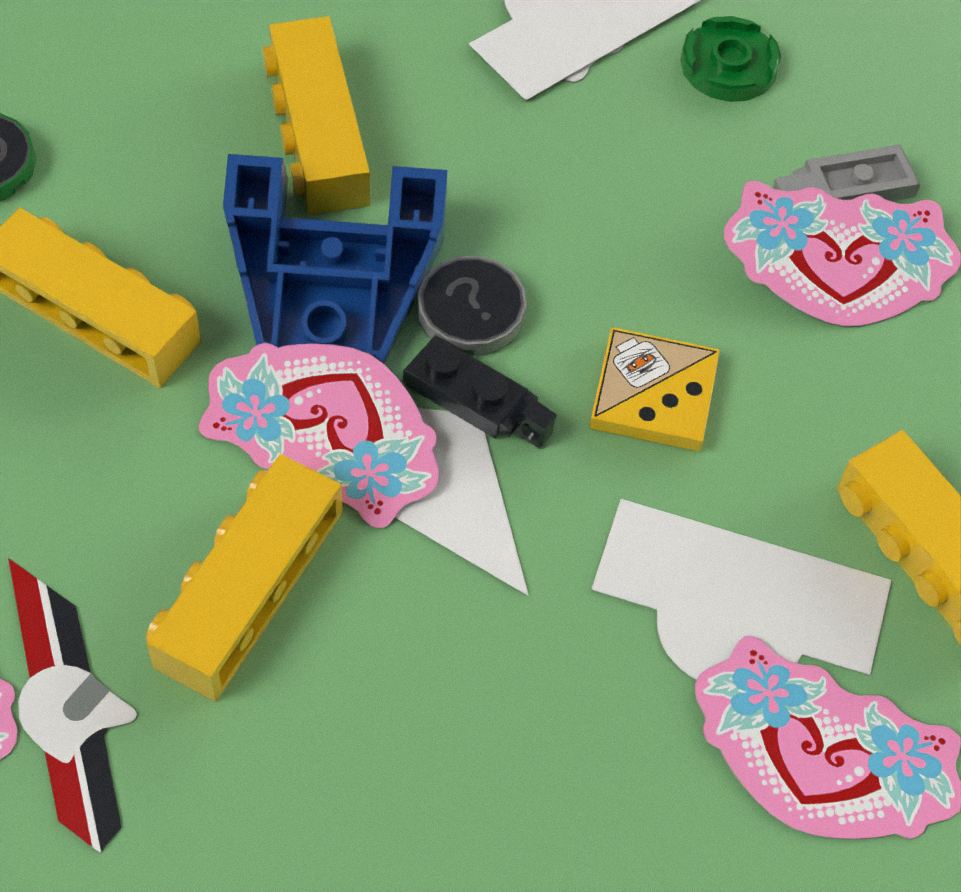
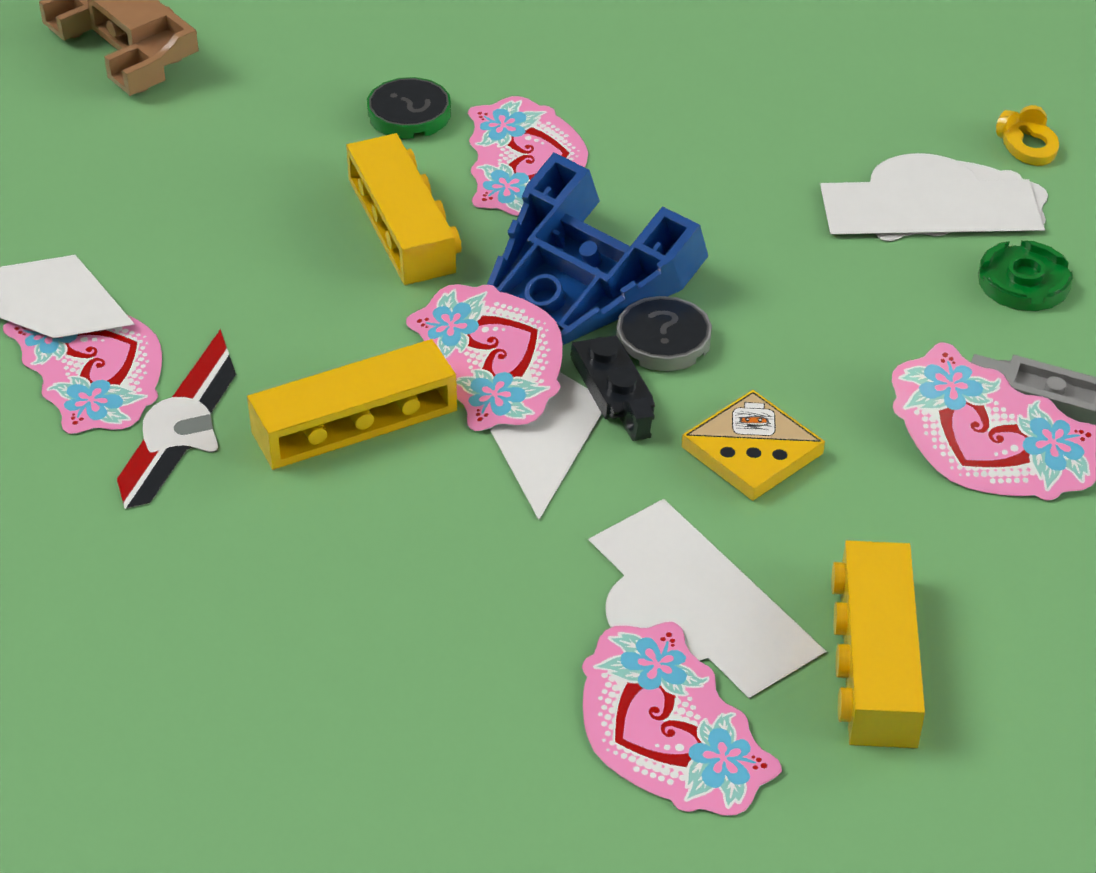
camera: 40 degrees right, 15 degrees down
(153, 154) = (512, 146): none -> sticker
(318, 115) = (657, 170): yellow brick -> none

